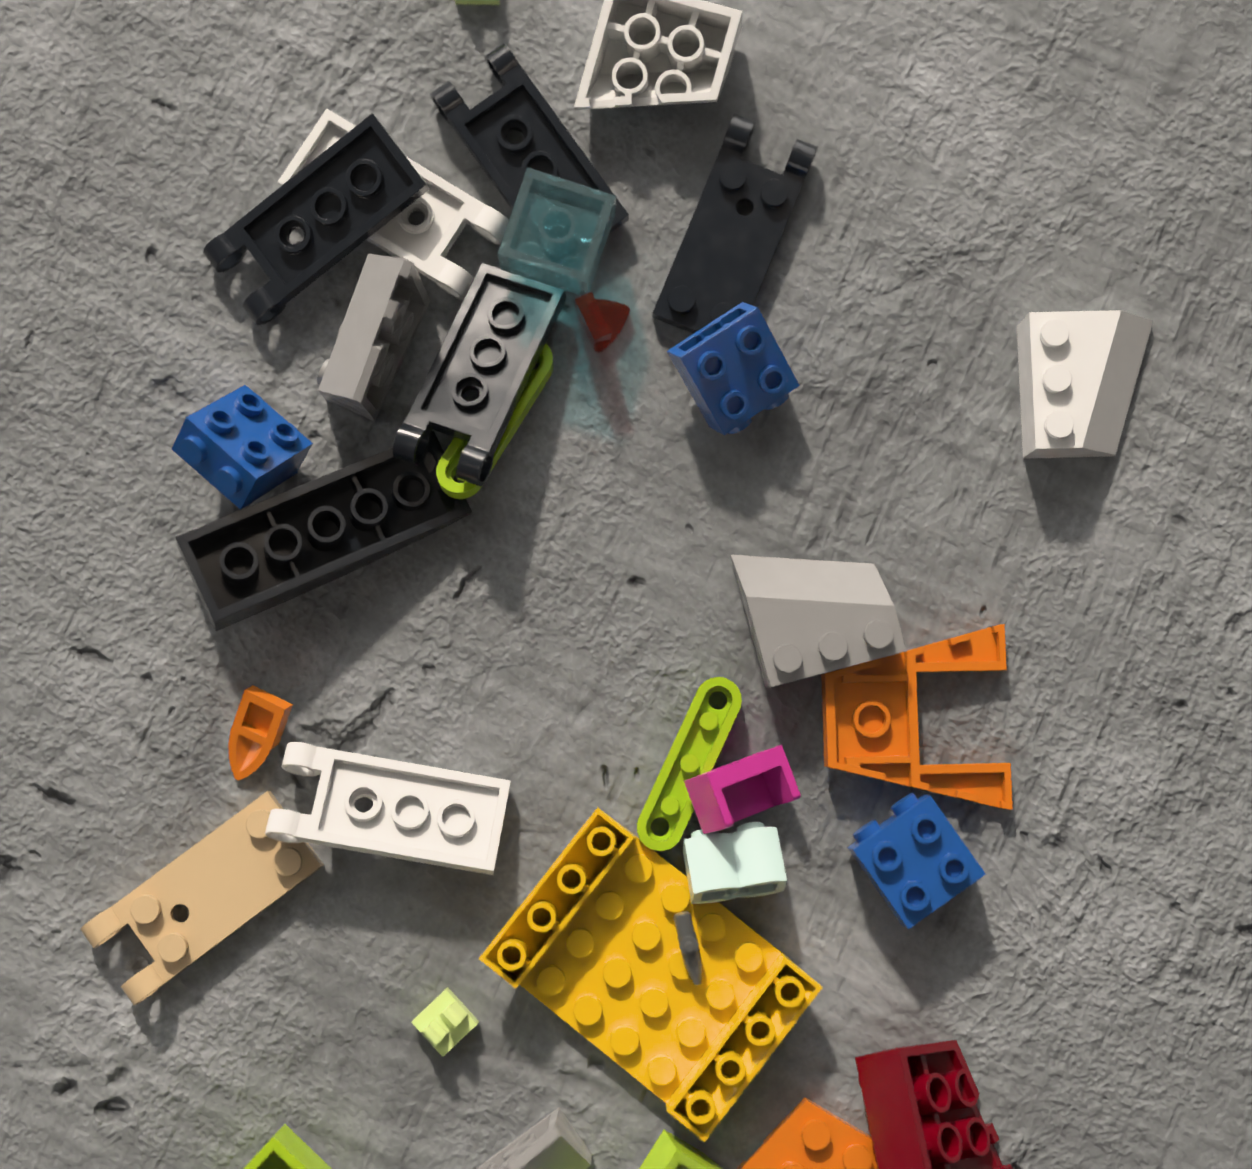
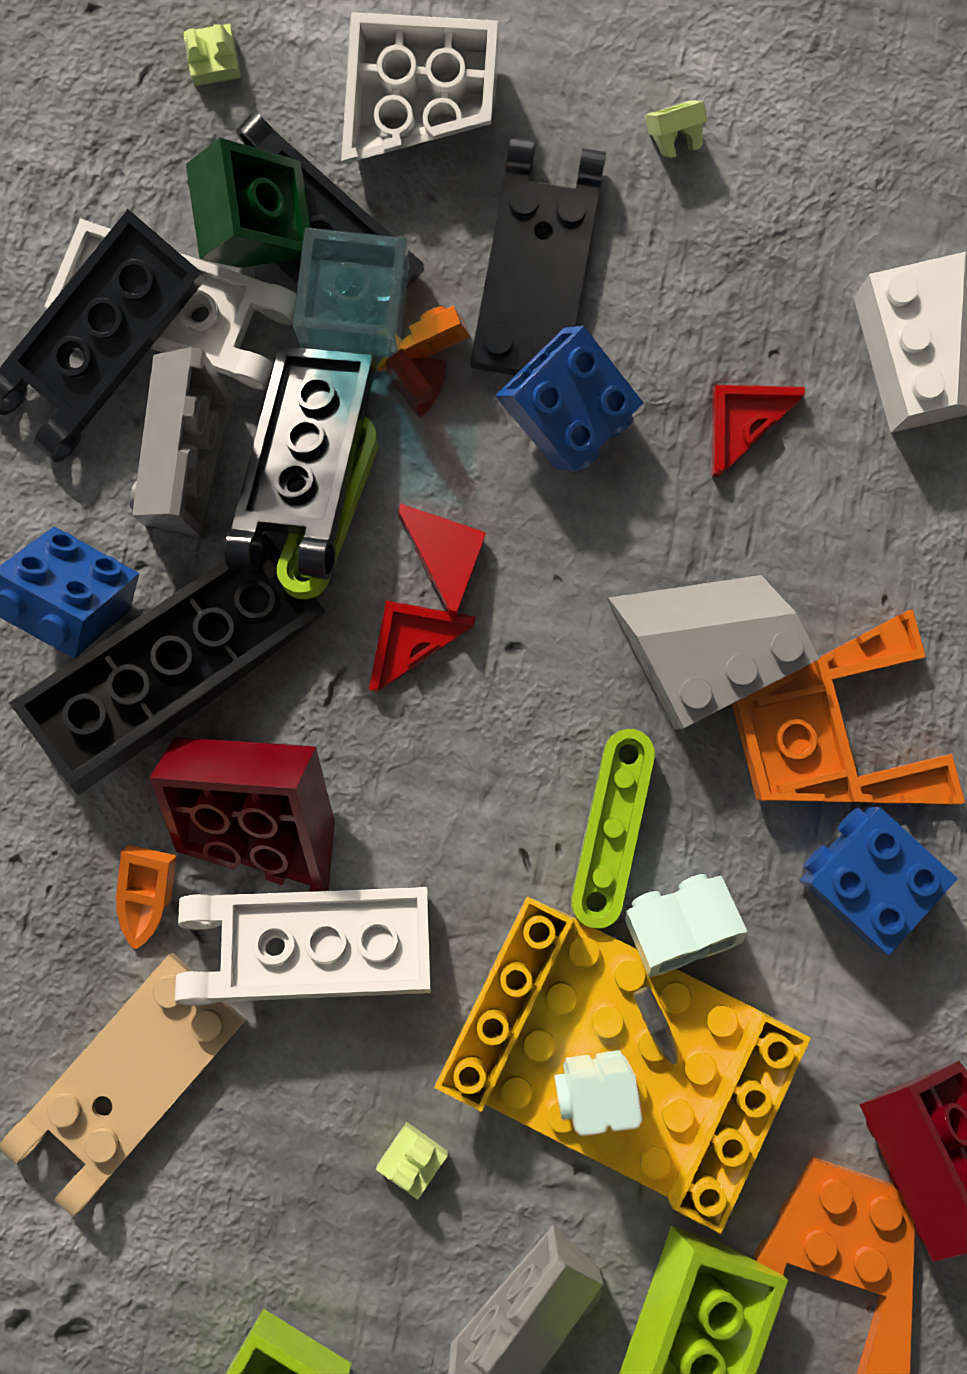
camera: 10 degrees left, 0 degrees up
(366, 675) = (248, 807): none -> dark red wedge
(480, 132) = (247, 205): none -> dark green slope
(544, 552) = (411, 636): none -> red tile
(592, 481) = (446, 552): none -> red tile
(621, 992) = (598, 1093): none -> light aqua brick
(627, 279) = (433, 333): none -> orange plate
(742, 789) = (676, 843): dark pink panel -> none
(888, 128) = (683, 117): none -> yellowish green tile
(891, 415) = (743, 416): none -> red tile

